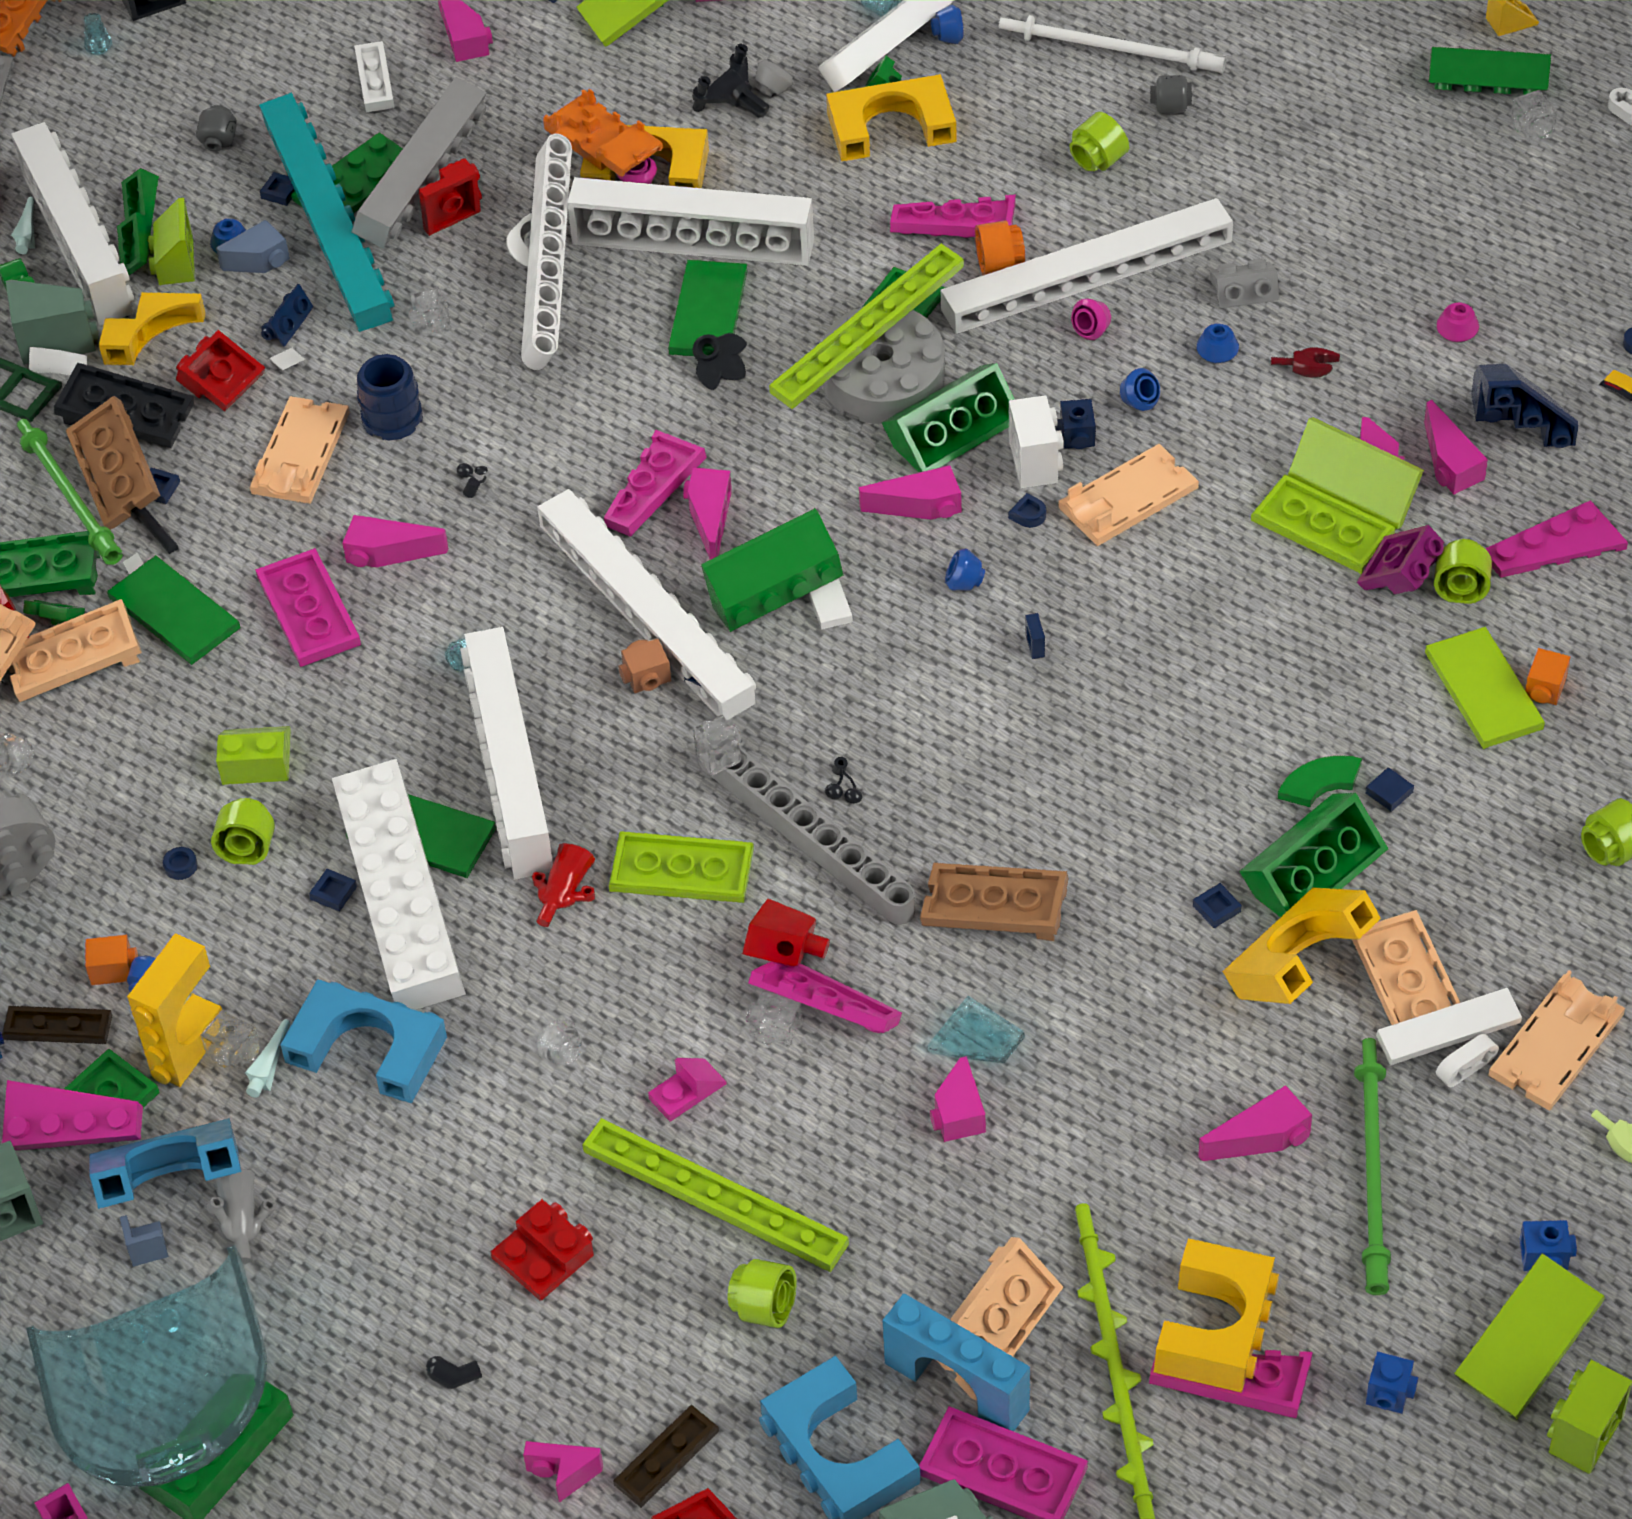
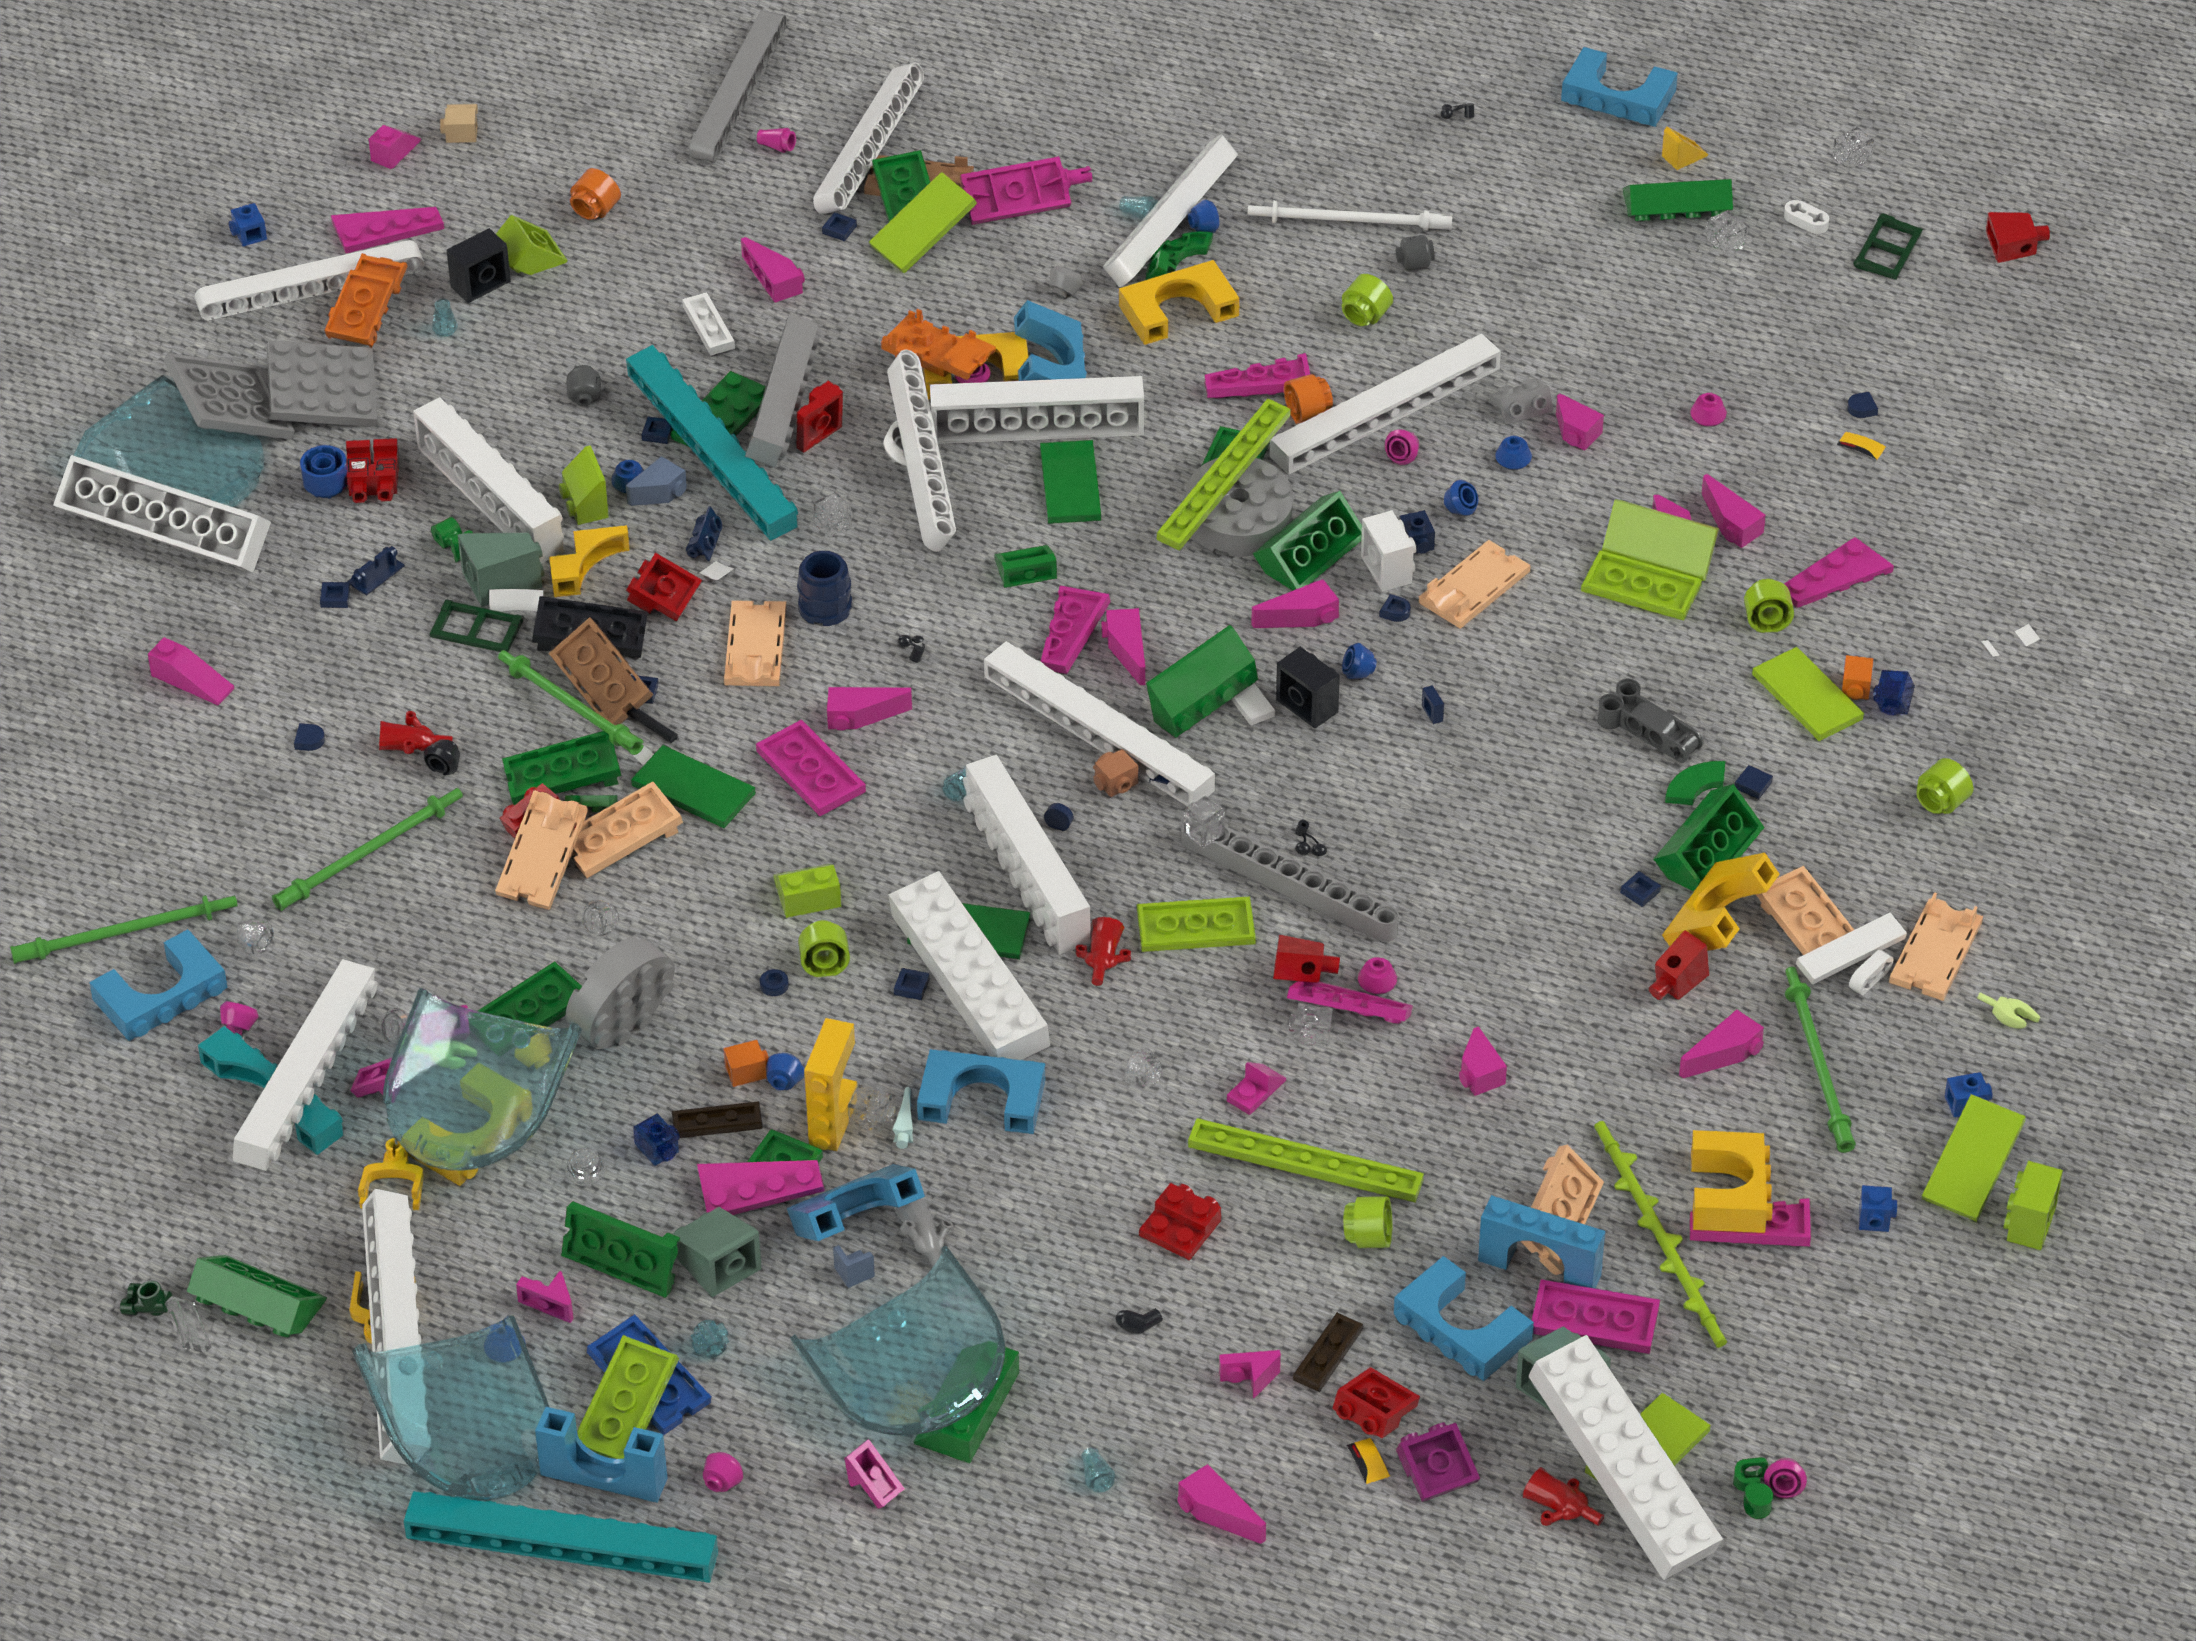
camera: 15 degrees left, 5 degrees down
(24, 231) = (441, 493): light aqua piece -> none
(139, 202) = (541, 467): green slope -> none
(564, 709) = (1058, 816): none -> dark blue tile
(626, 401) = (1026, 566): none -> green tile
(724, 360) = (1099, 523): black plate -> none
(730, 87) = (1031, 289): black axle -> none
(740, 135) = (1055, 333): none -> dark azure arch
(871, 968) = (1377, 976): none -> dark pink cone
(893, 594) = (1307, 687): none -> black brick
(920, 55) = (1185, 246): none -> green tile
(976, 1034) = (1478, 1008): clear light blue wing -> none
(995, 899) = (1463, 909): medium nougat piece -> none
(1232, 1019) = (1680, 967): none -> red torso
(1281, 694) = (1647, 721): none -> dark grey piece
(1302, 317) = (1577, 422): none -> dark pink slope
(1309, 361) = (1594, 458): dark red hand -> none
(1402, 560) = (1717, 603): magenta plate -> none
(1507, 395) = (1766, 461): dark blue brick -> none
(1586, 702) = (1894, 692): none -> clear blue brick

